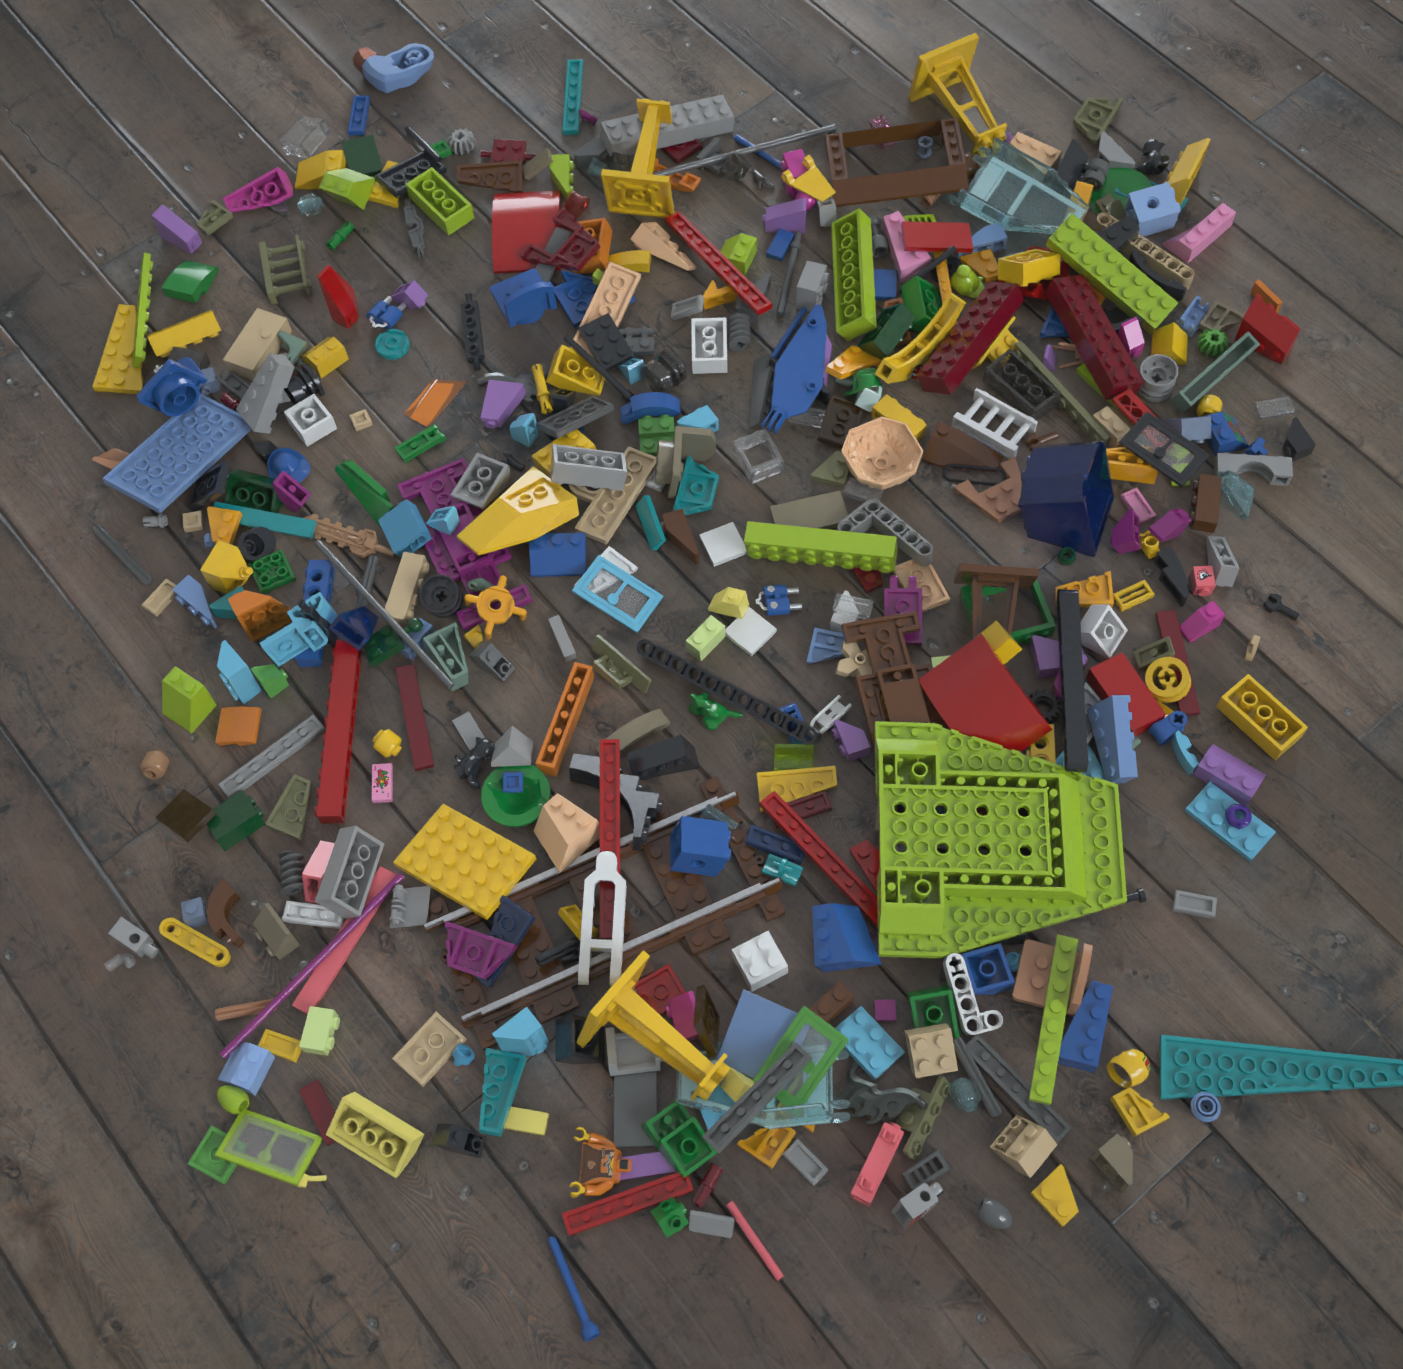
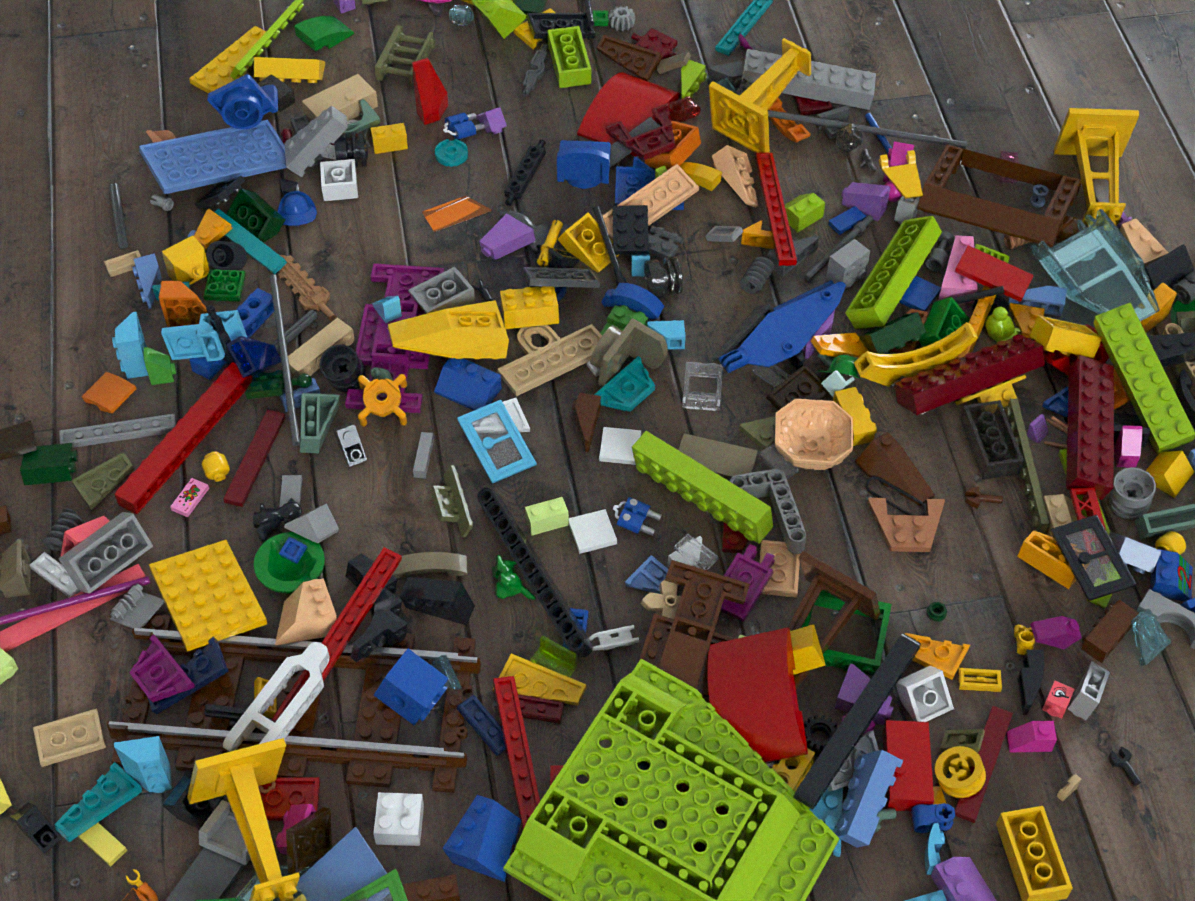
camera: 25 degrees right, 10 degrees down
(154, 764) = (21, 389): medium nougat head -> none
(185, 700) = (80, 349): lime slope -> none
(193, 521) = (191, 216): tan tile -> none
(212, 384) = (282, 116): sand blue brick -> none
(290, 491) = (280, 226): magenta slope -> none
(339, 235) = (469, 49): green pin -> none
(360, 420) = (382, 200): tan tile -> none
(365, 488) = (346, 260): green wedge -> none
(404, 528) = (353, 300): dark azure brick -> none
(420, 443) = (417, 240): green plate -> none
(462, 1055) = (91, 756): dark azure tile -> none
(474, 636) = (351, 416): yellow tile -> none
(524, 429) = (511, 269): medium azure slope -> none
(565, 719) = (375, 522): orange brick -> none
(588, 467) = (538, 321): light grey slope -> none
(650, 522) = (566, 396): teal tile -> none
(709, 345) = (721, 273): white brick -> none
(730, 602) = (590, 497): light yellow slope -> none
(778, 867) = (476, 751): teal hips -> none
(851, 739) = (616, 668): medium lavender slope -> none
(985, 436) = (933, 474): white fence -> none
(1067, 495) = (966, 553): clear blue windscreen -> none
(1126, 533) = (1008, 618): magenta slope -> none
(1134, 500) = (1039, 601): bright pink tile -> none

